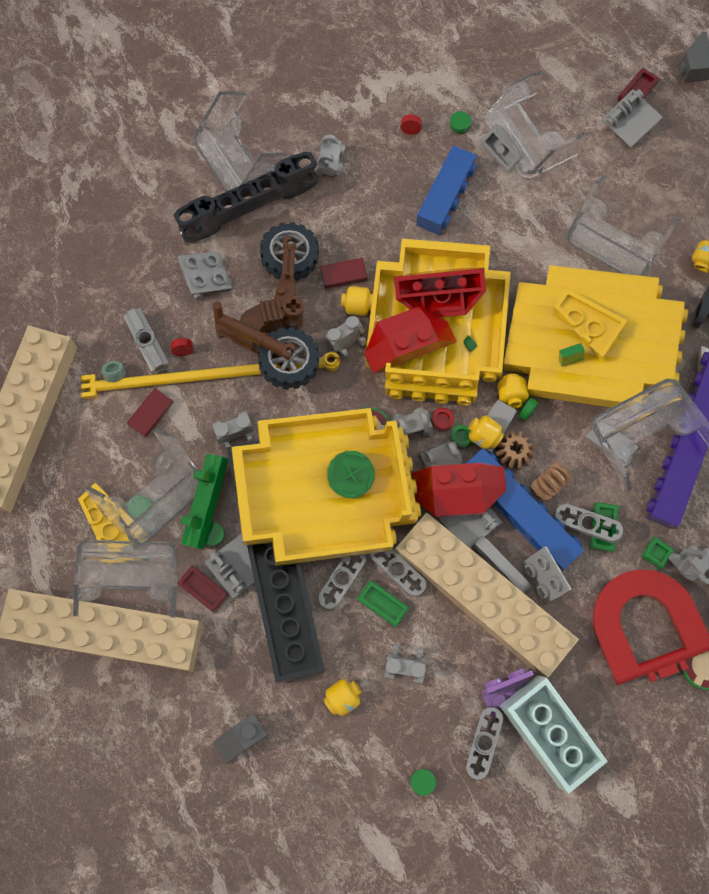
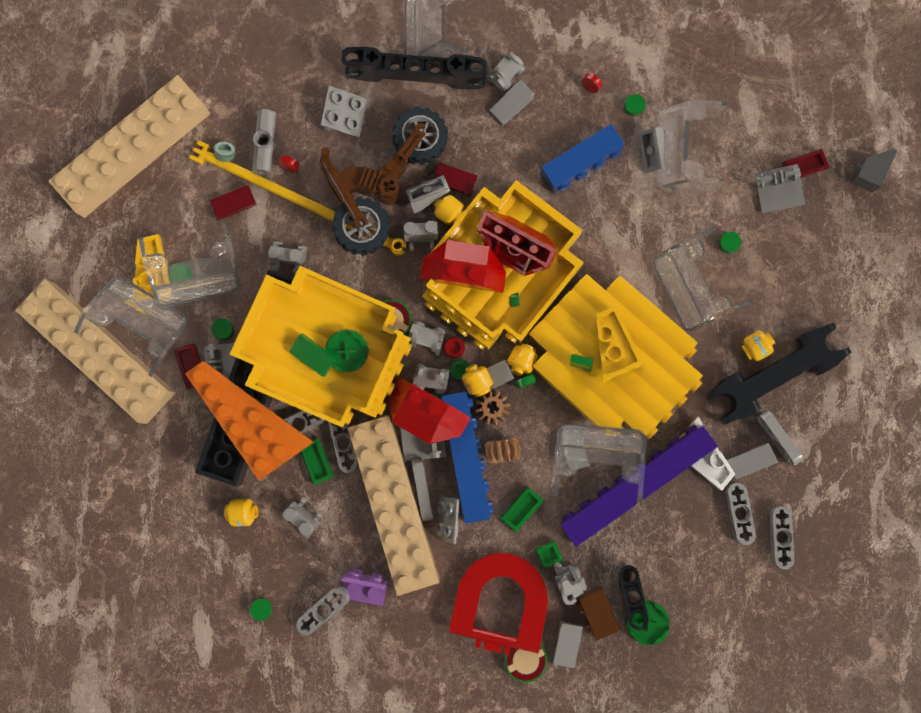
camera: 30 degrees right, 10 degrees up
(204, 501) = (236, 294): green hinge -> none
(241, 737) = (151, 495): dark grey slope -> none
(308, 602) = (253, 428): none -> orange wing
(321, 496) = (313, 355): none -> green tile
(328, 298) = (427, 193): none -> light grey slope
(352, 179) = (512, 102): none -> light grey slope
(553, 733) = (373, 638): light aqua brick -> none
(608, 523) = (496, 490): light grey beam -> none
(621, 186) = (729, 242): none -> green tile

